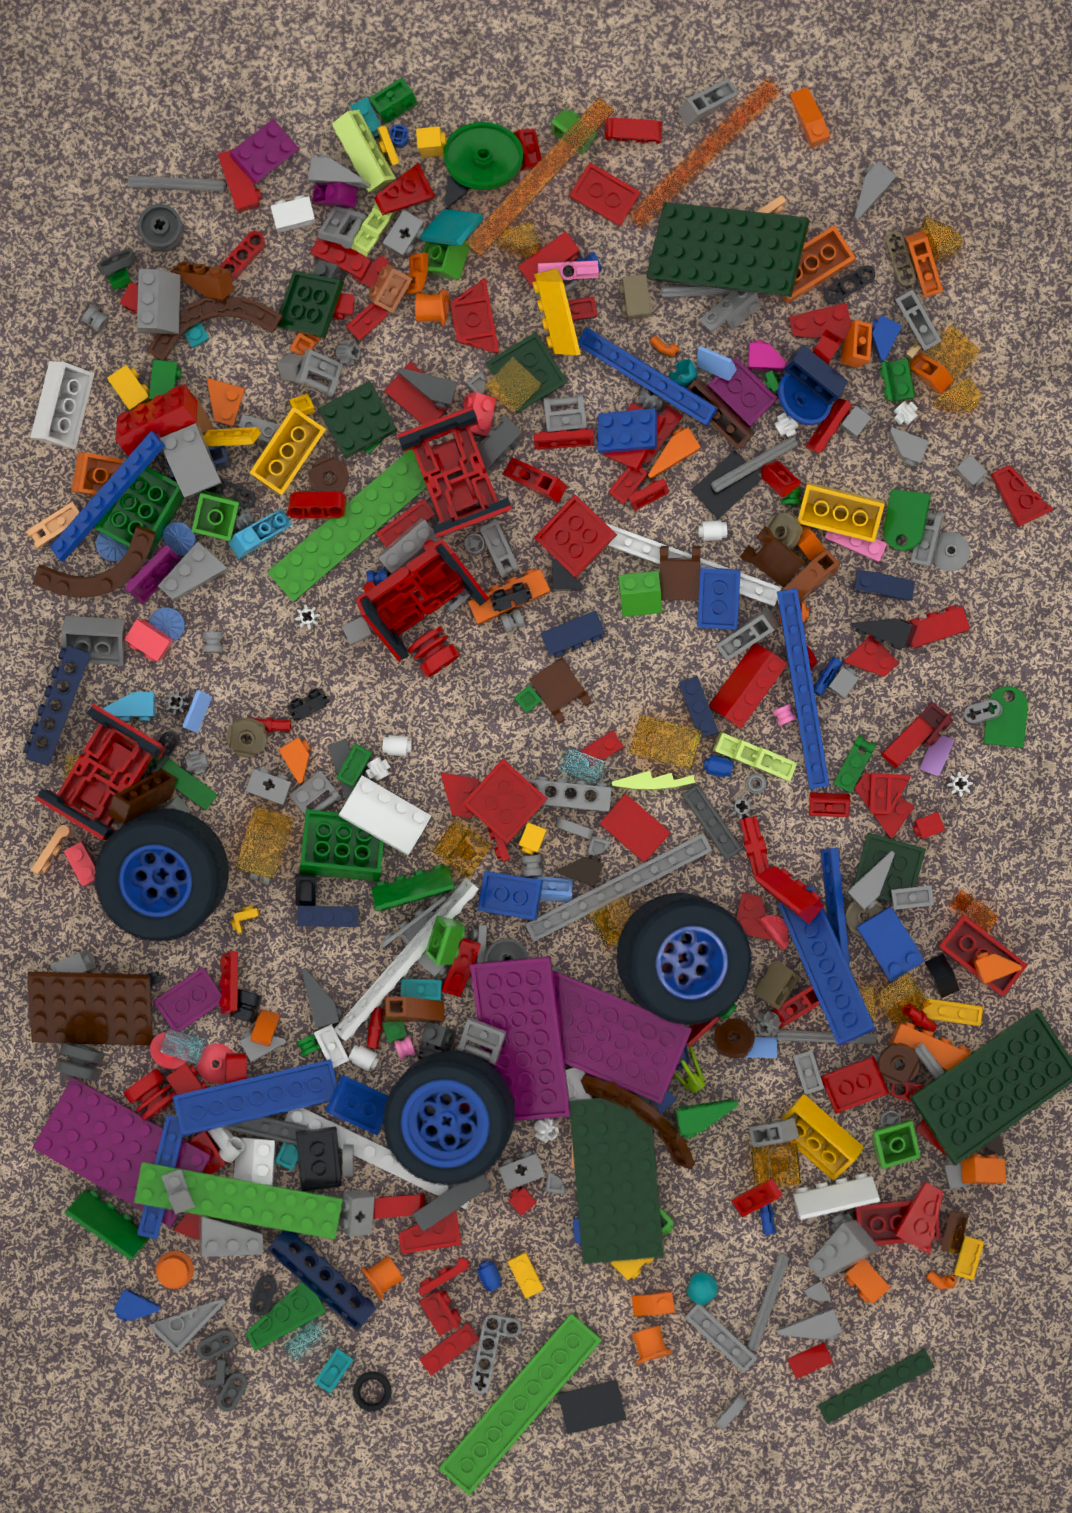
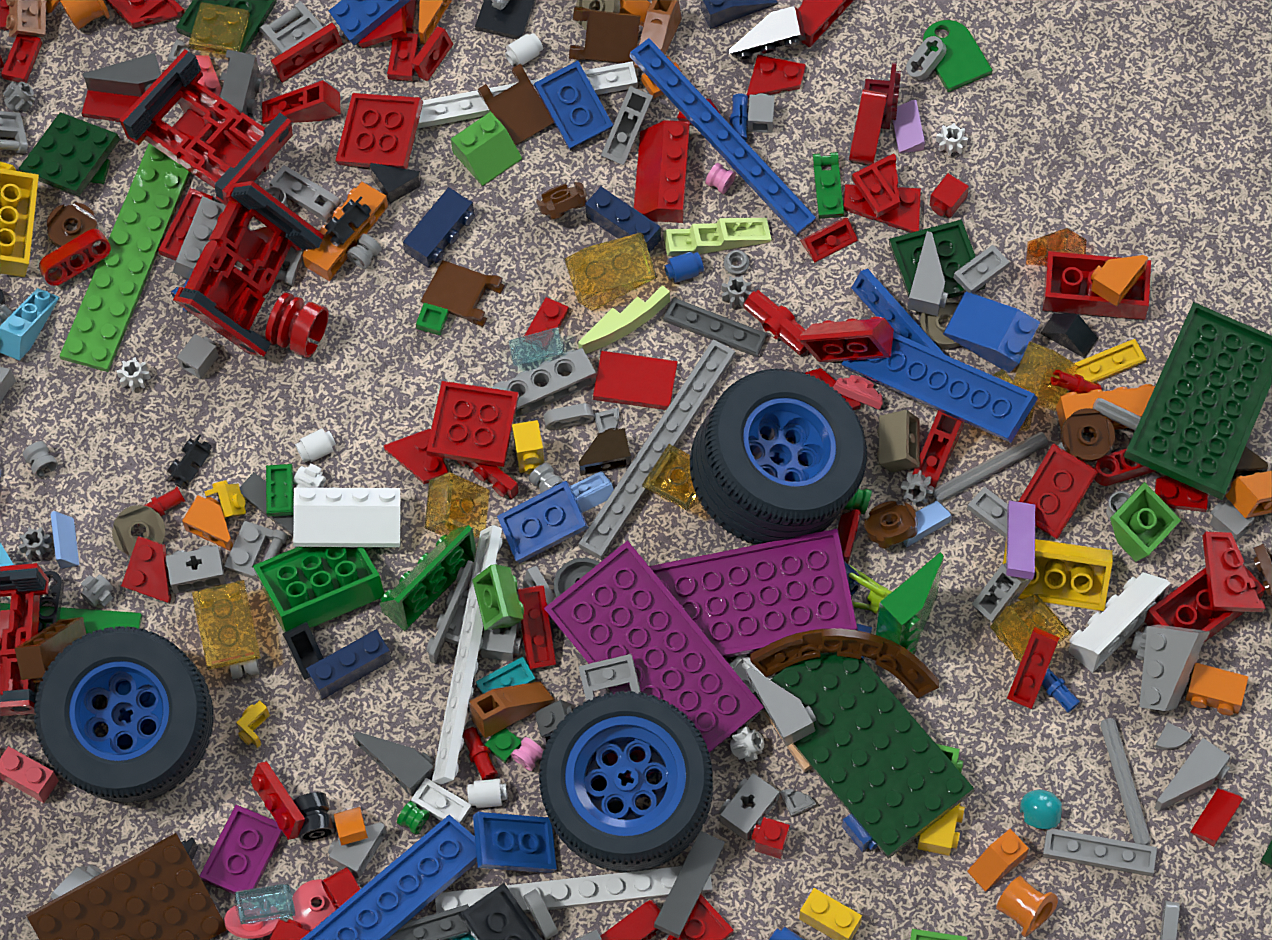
camera: 30 degrees left, 20 degrees down
(238, 768) = (148, 570): none -> red wing
(319, 749) = (230, 498): none -> yellow bracket
(578, 1133) = (785, 710): none -> light grey slope
(660, 672) = (562, 199): none -> reddish brown plate
(805, 1109) = (1020, 540): none -> medium lavender tile

